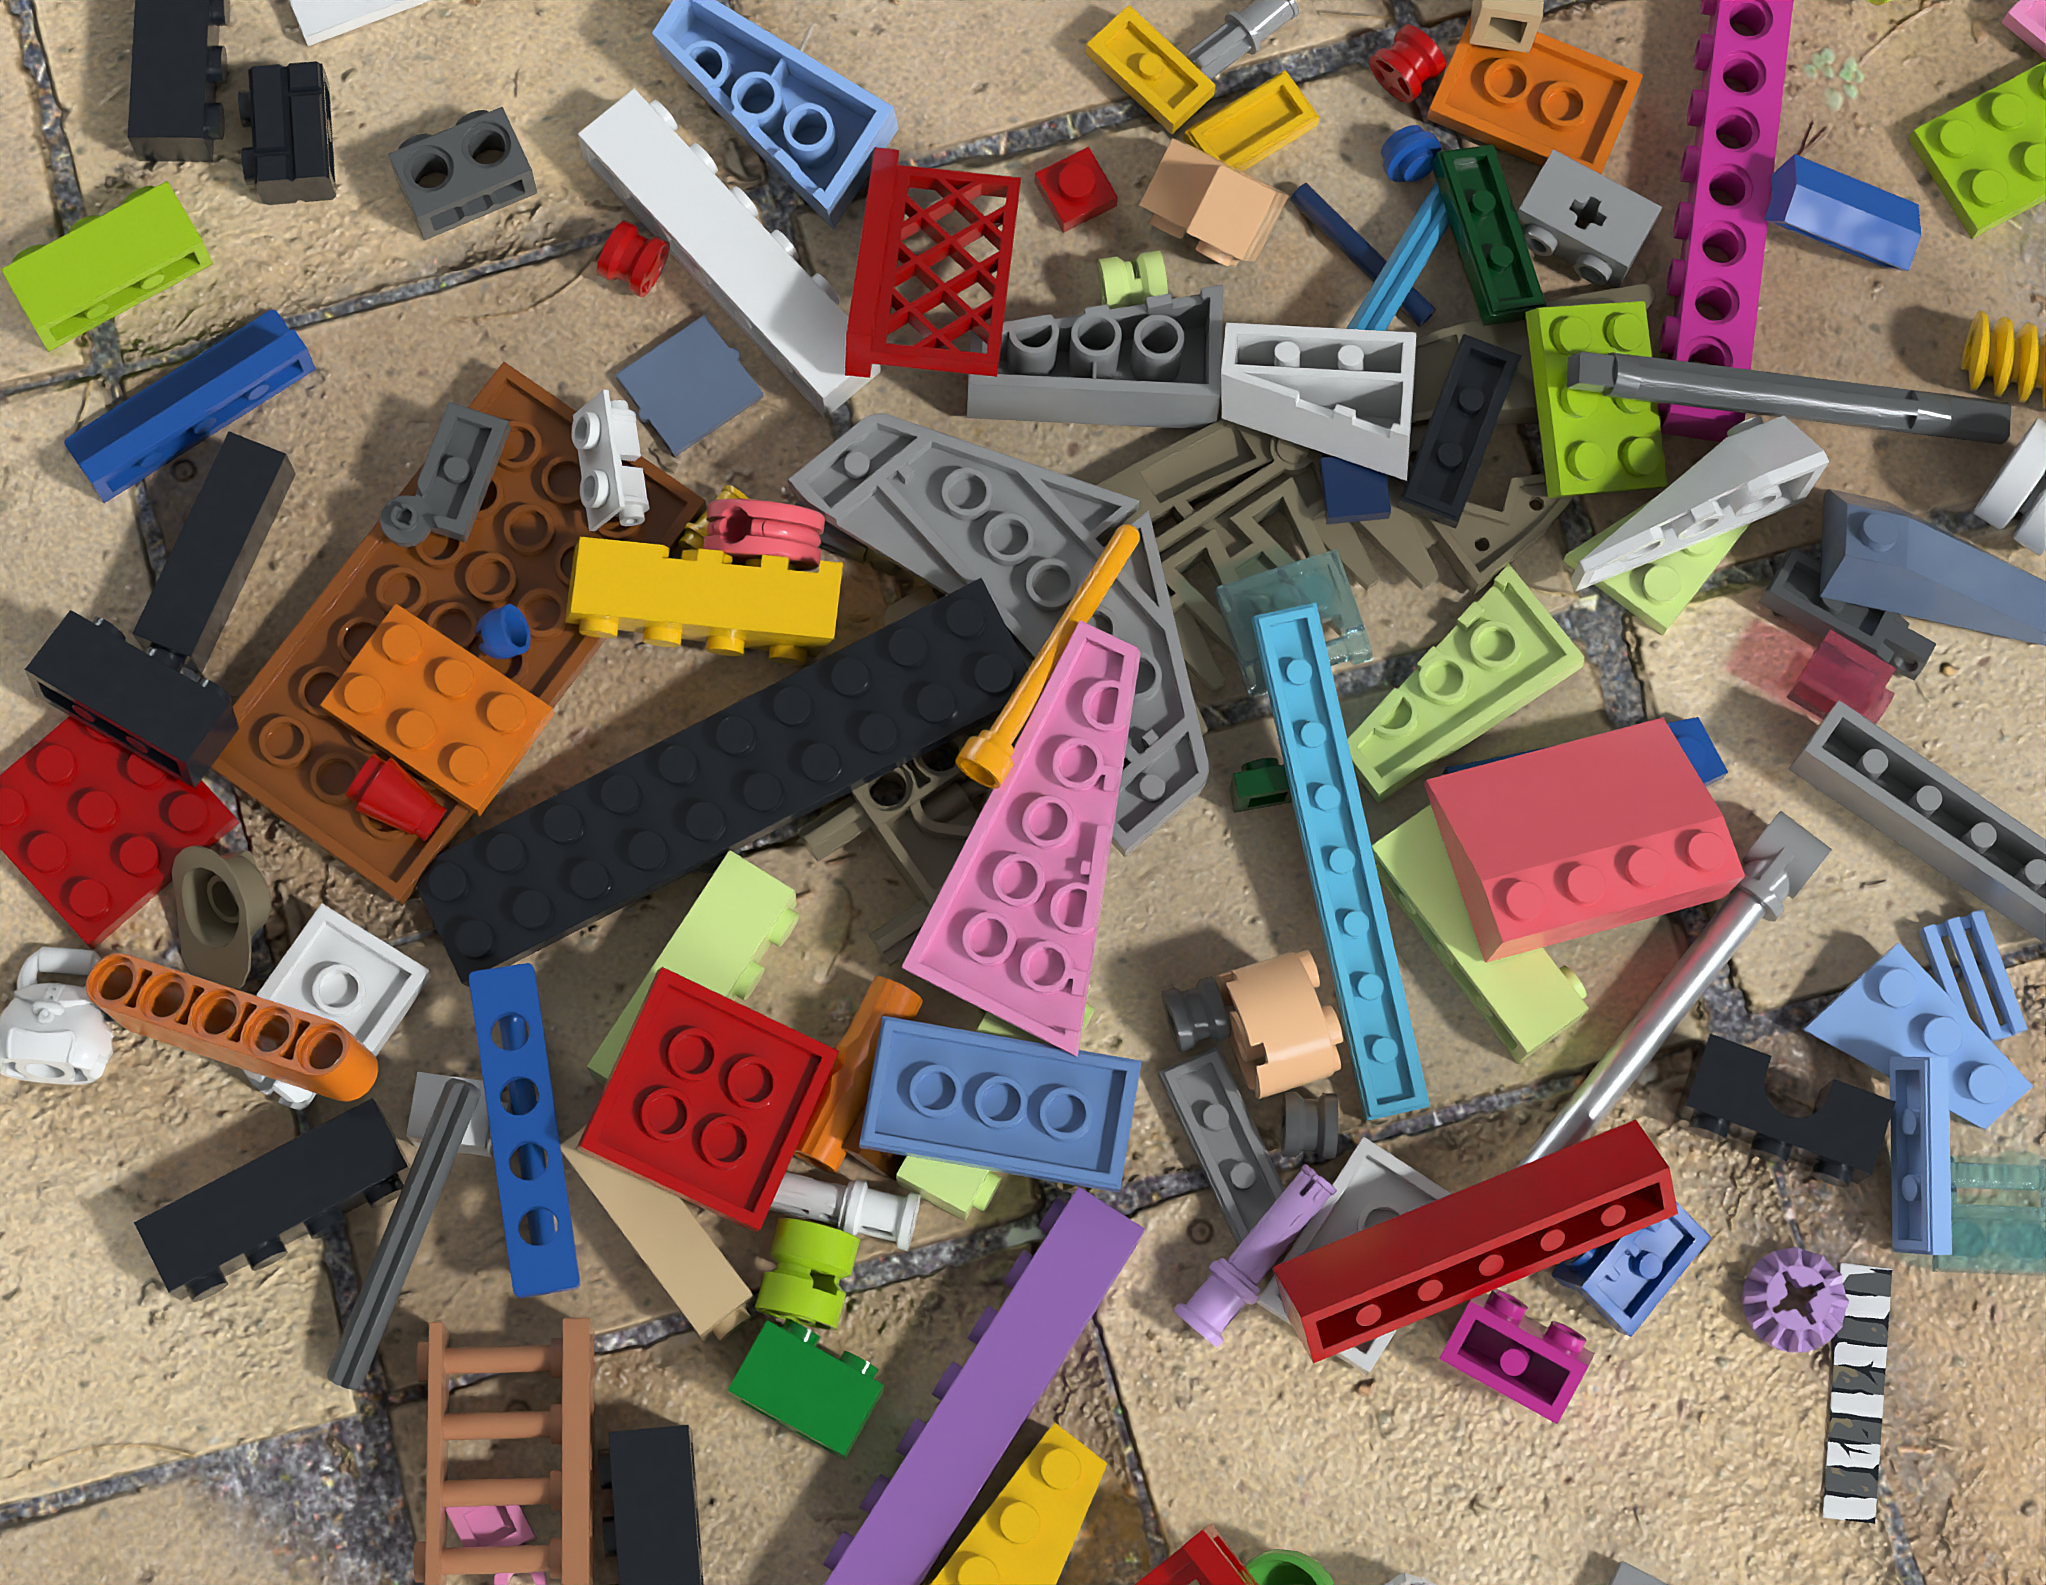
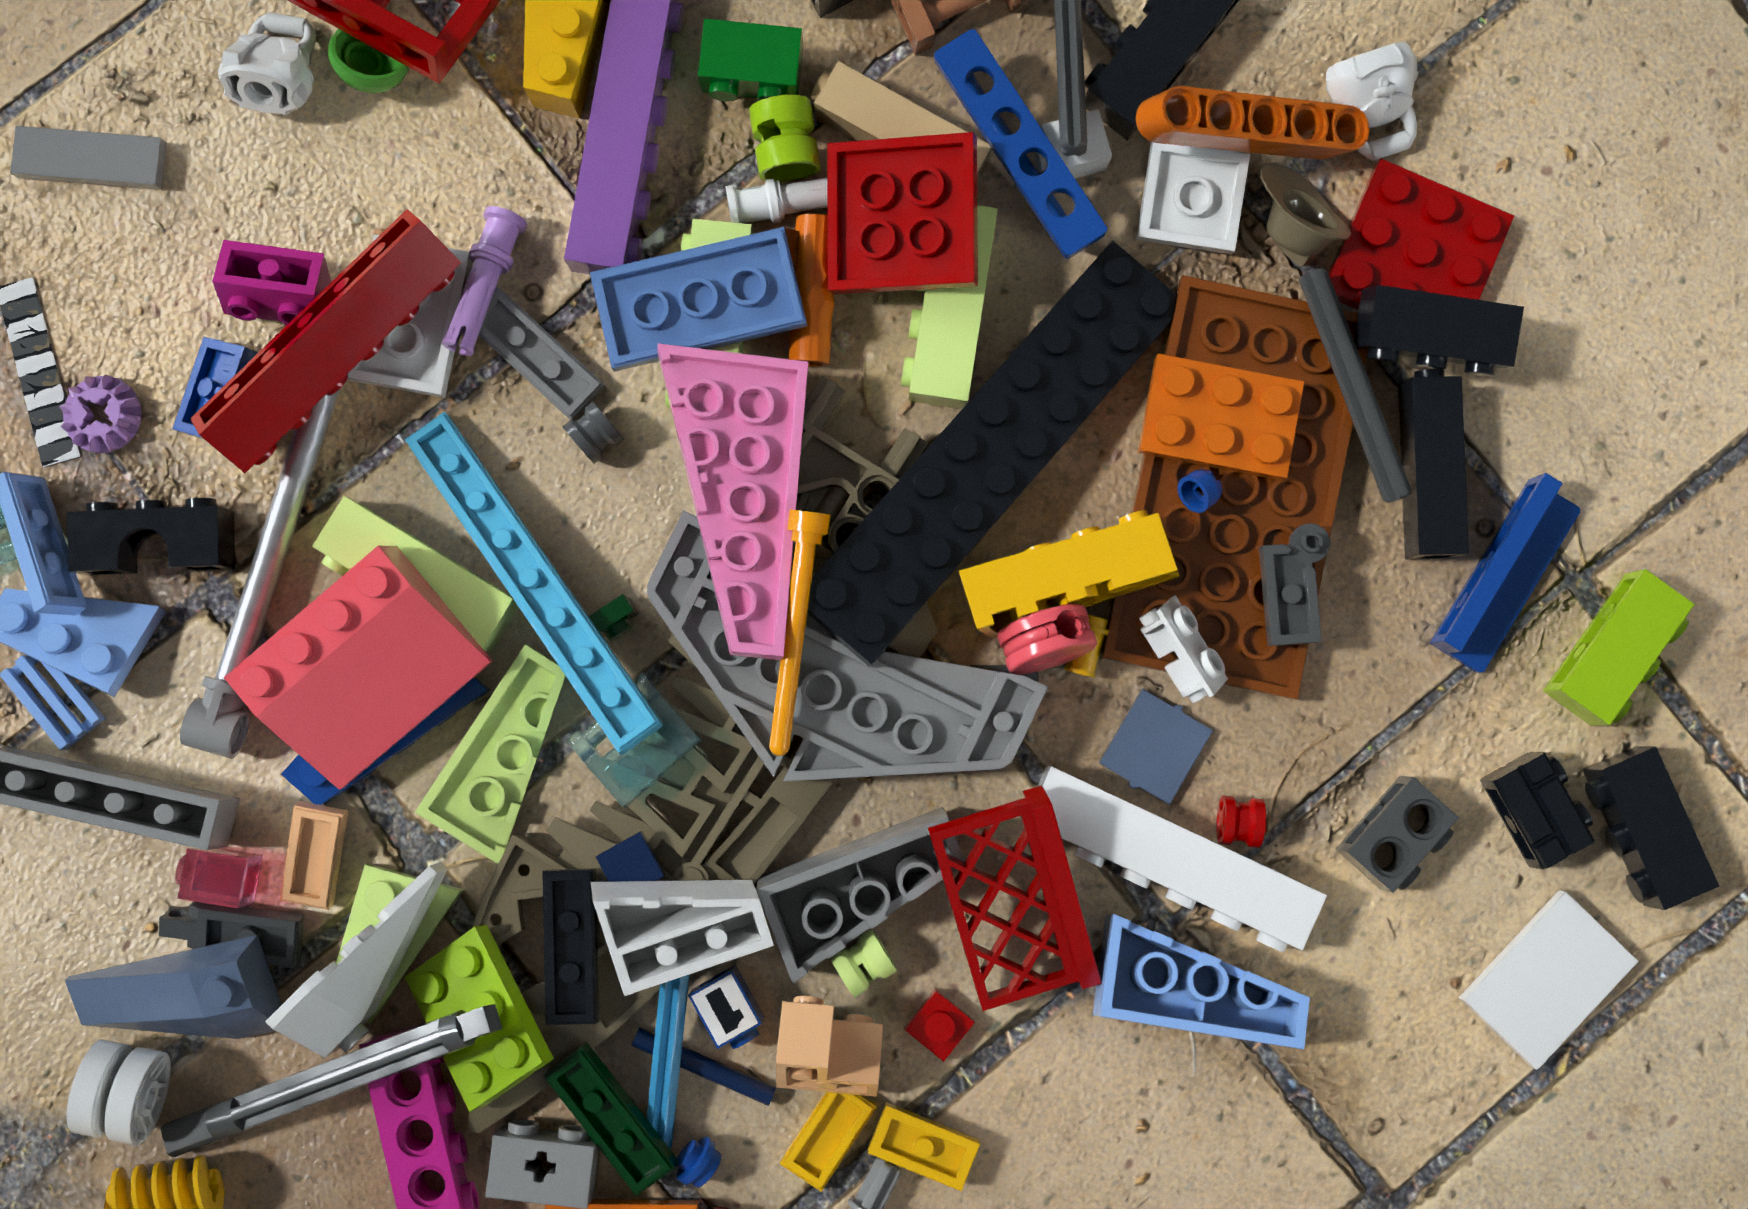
camera: 160 degrees right, 10 degrees up
(261, 679) = (1355, 385): none -> dark grey axle
(394, 797) = (1219, 337): red cone -> none
(1278, 1024) = (527, 441): light nougat brick -> none
(1309, 290) = (727, 1008): none -> brick
(1309, 1125) = (482, 388): dark grey wheel -> none
(1722, 664) = (313, 855): none -> light nougat tile

